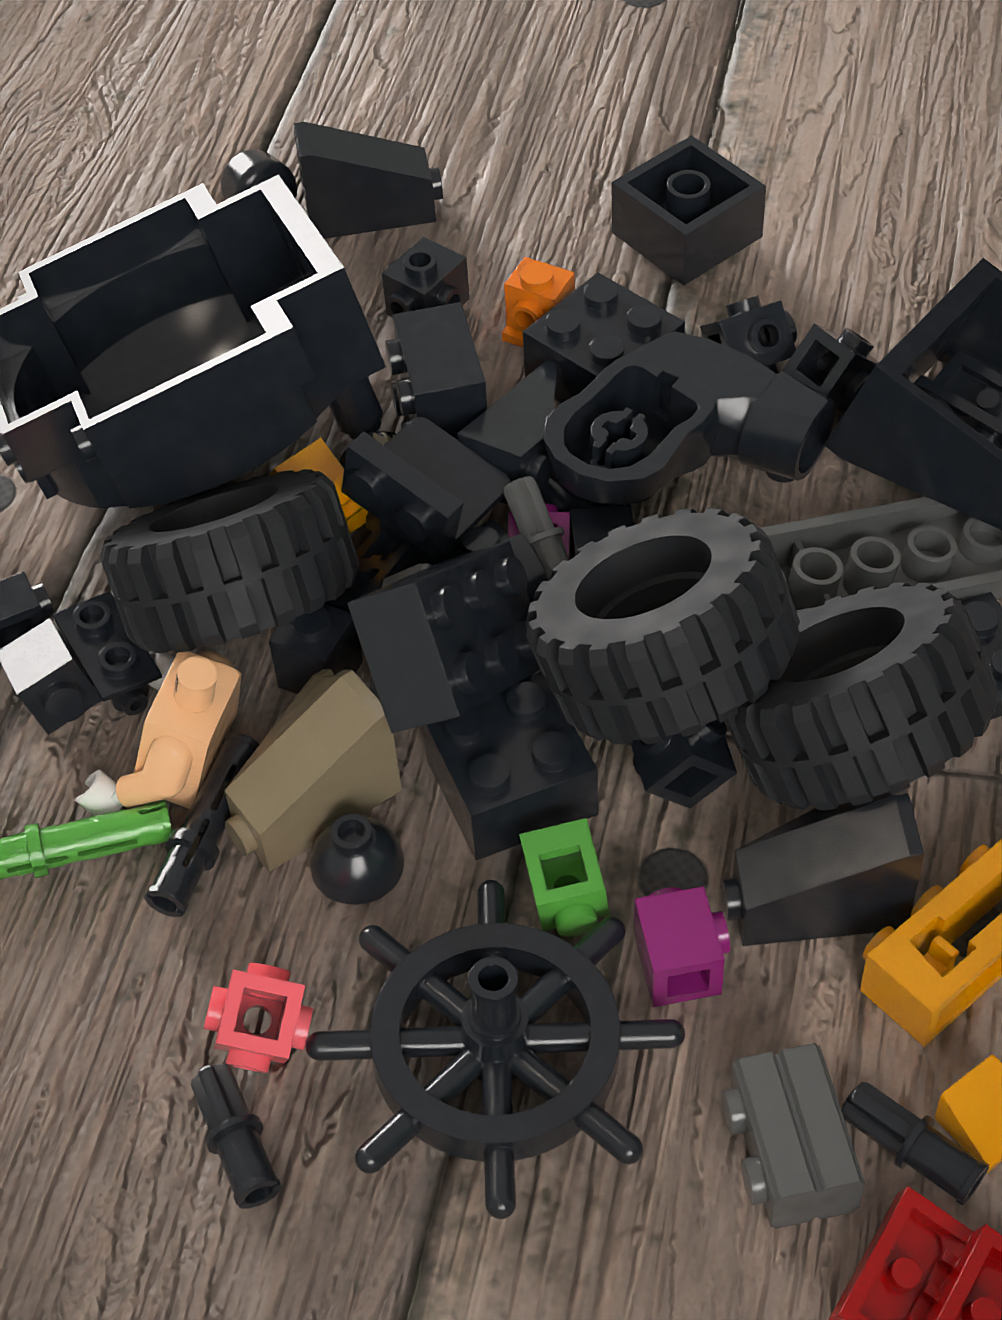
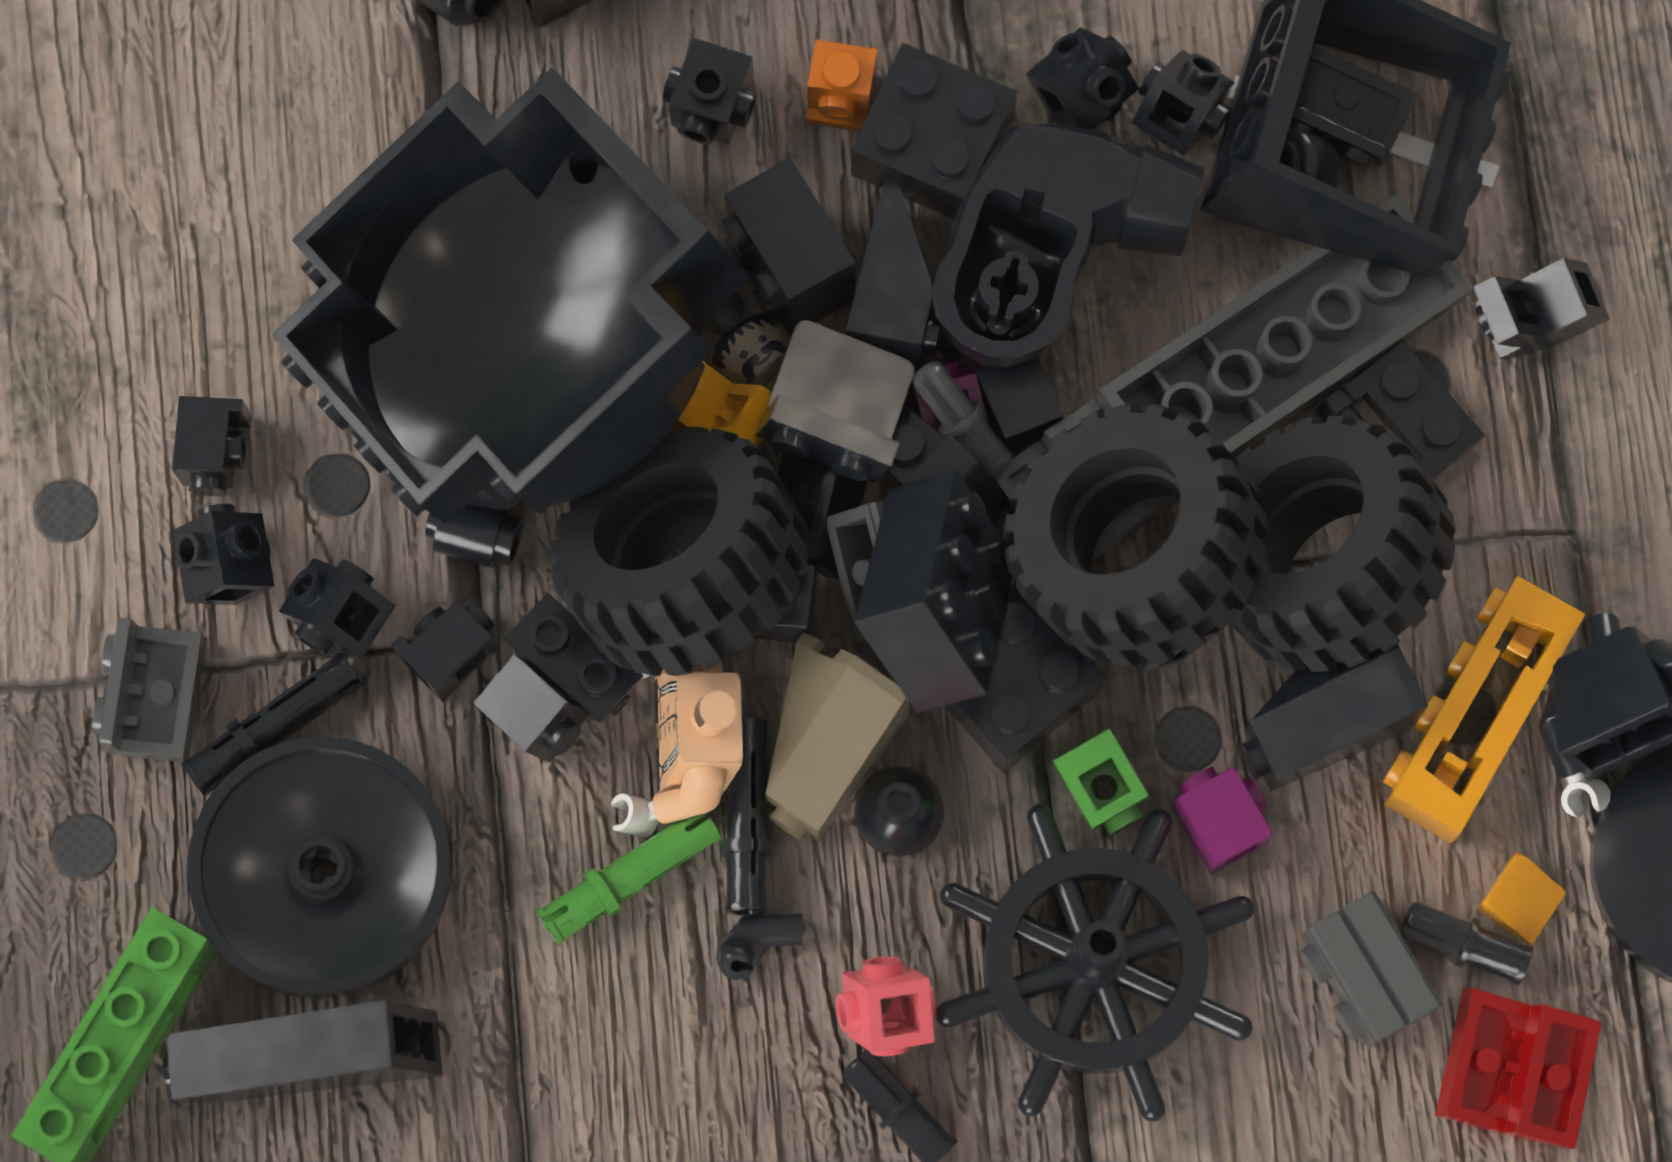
camera: 20 degrees left, 25 degrees up
(71, 537) = (478, 535): none -> black brick
(162, 932) = (752, 938): none -> black arm

